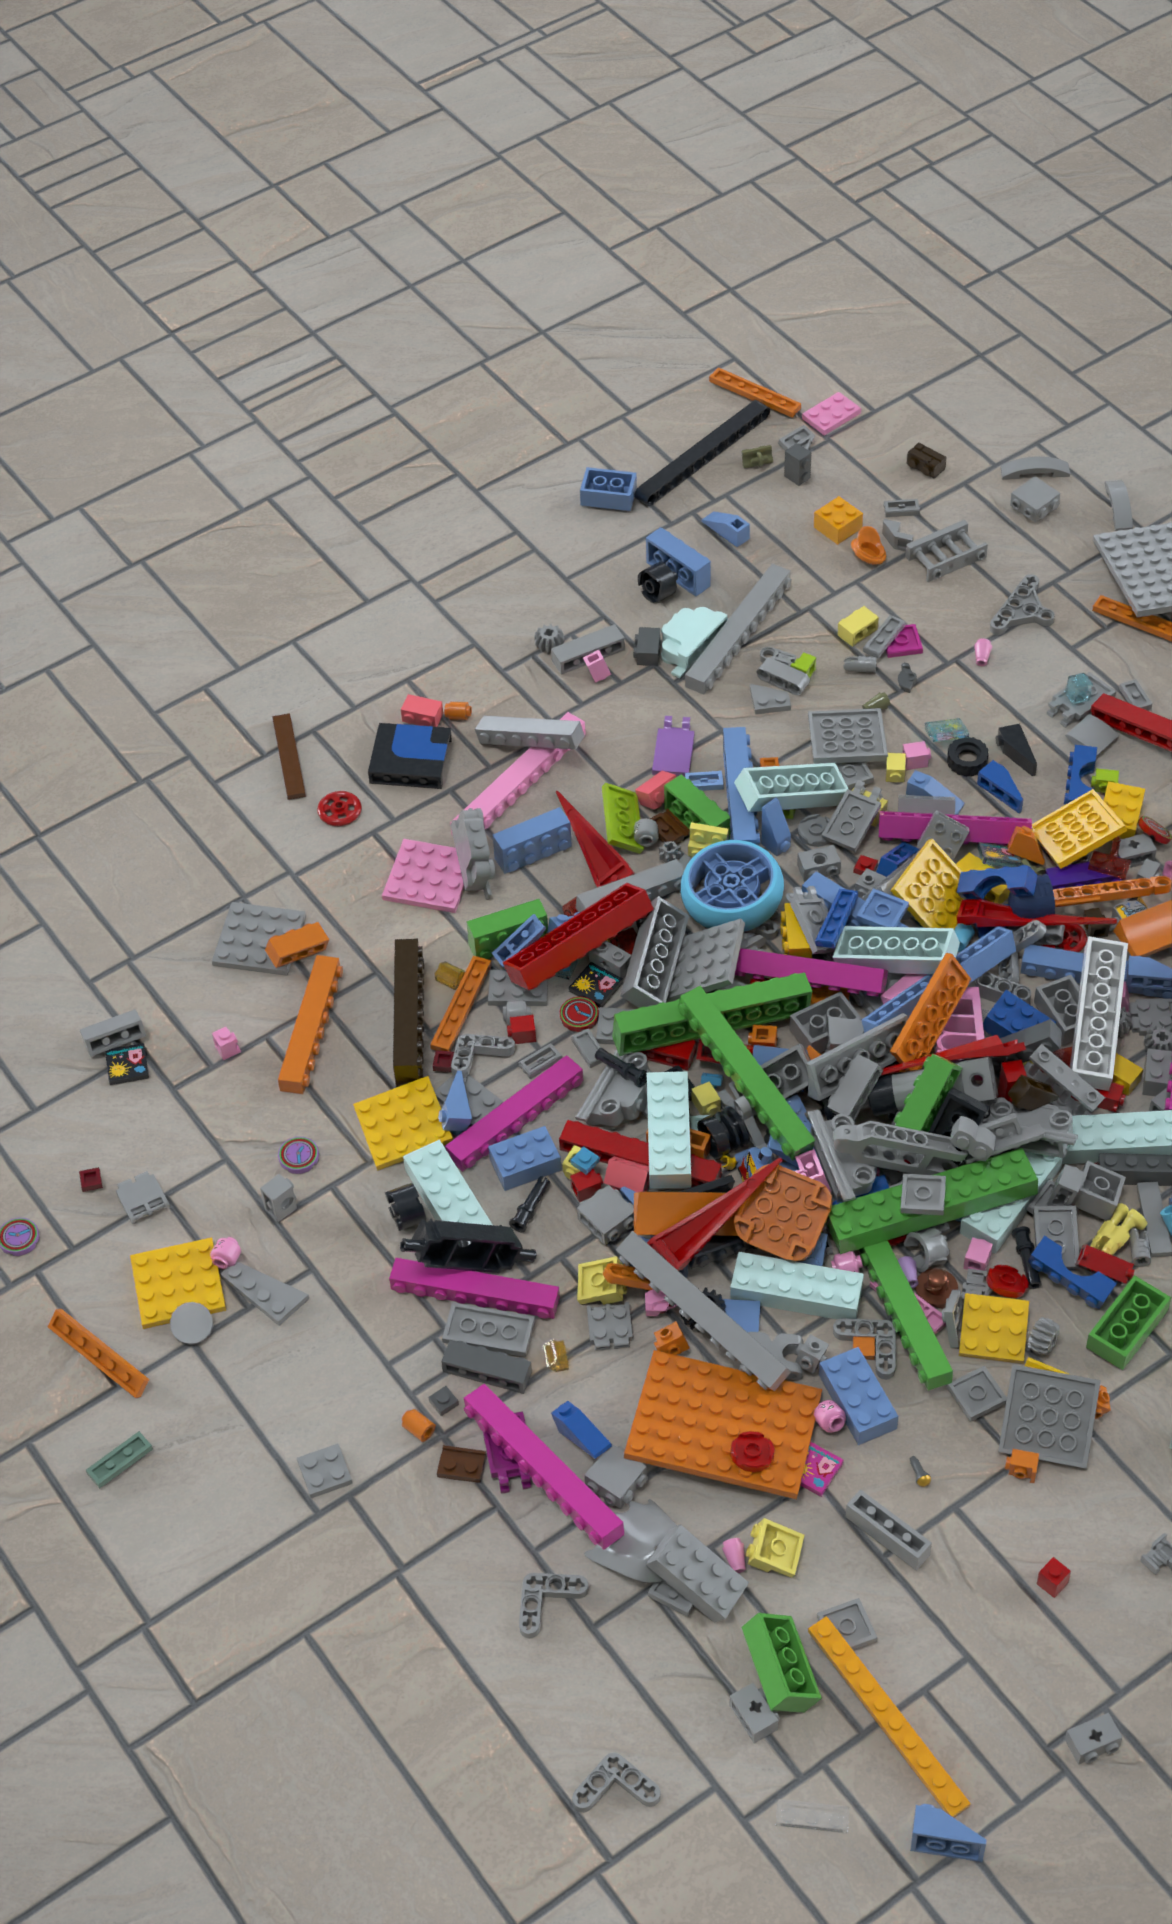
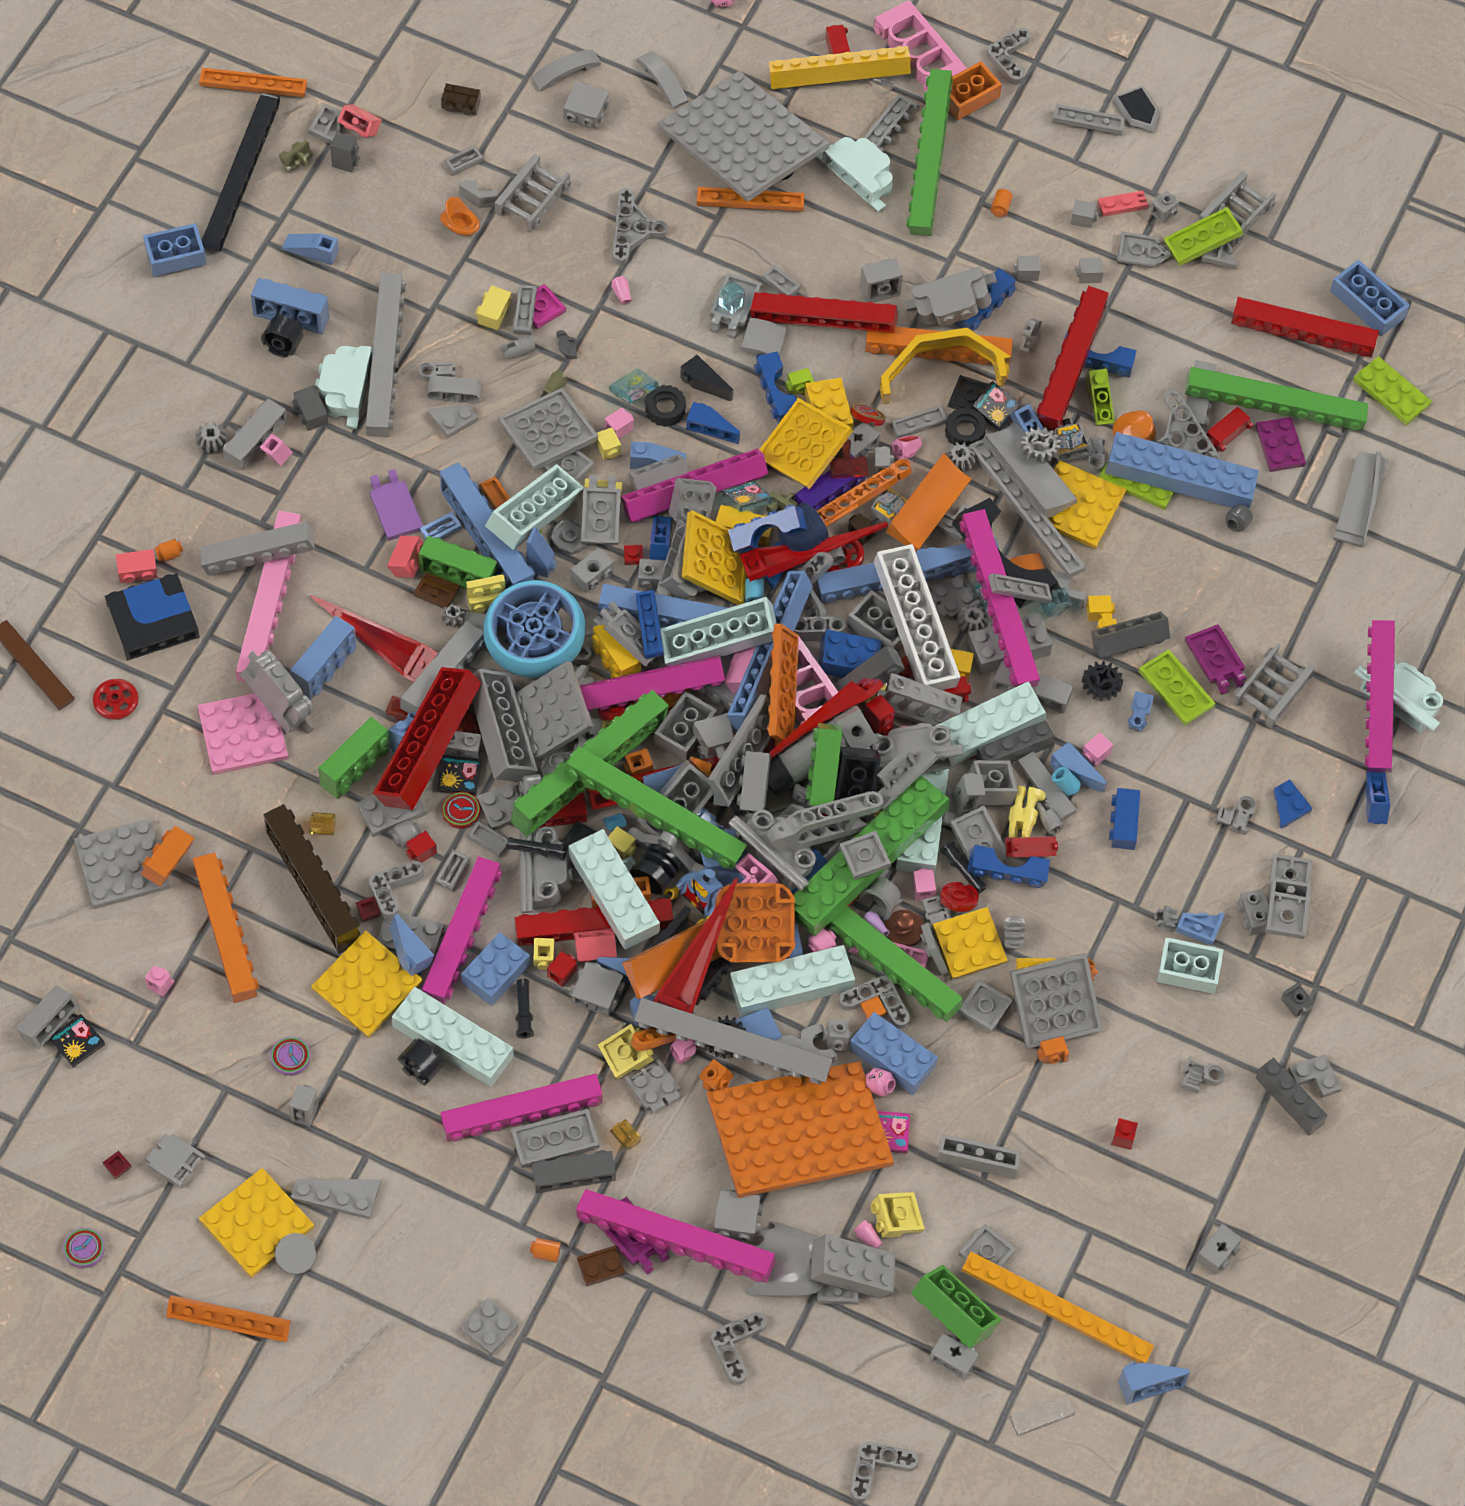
camera: 35 degrees left, 10 degrees up
(119, 1459) = (308, 1402): sand green plate -> none
(225, 1252) = (285, 1176): bright pink head -> none
(443, 1400) = (553, 1218): dark grey plate -> none
(461, 1004) = (350, 847): orange plate -> none
(466, 1246) = (502, 1075): black brick -> none
(524, 936) = (375, 765): medium blue slope -> none
(580, 1430) = (686, 1190): blue slope -> none
(585, 1160) = (553, 948): dark azure plate -> none
(621, 814) = (391, 599): lime plate -> none
(646, 832) = (421, 605): light grey head -> none
(752, 1451) = (840, 1143): red tile -> none
(805, 663) = (468, 368): lime brick -> none
(826, 446) = (359, 120): none -> coral brick
(831, 413) = (339, 78): bright pink plate -> none
(838, 520) = (414, 198): light orange brick -> none
(882, 910) = (684, 599): medium blue plate -> none
(922, 1477) = (979, 1098): dark grey piece -> none
(974, 1139) = (882, 787): light grey brick -> none
(1025, 845) = (764, 477): orange slope -> none
(1031, 1093) = (903, 721): dark brown slope -> none
(1128, 1322) = (1074, 889): bright green brick -> none

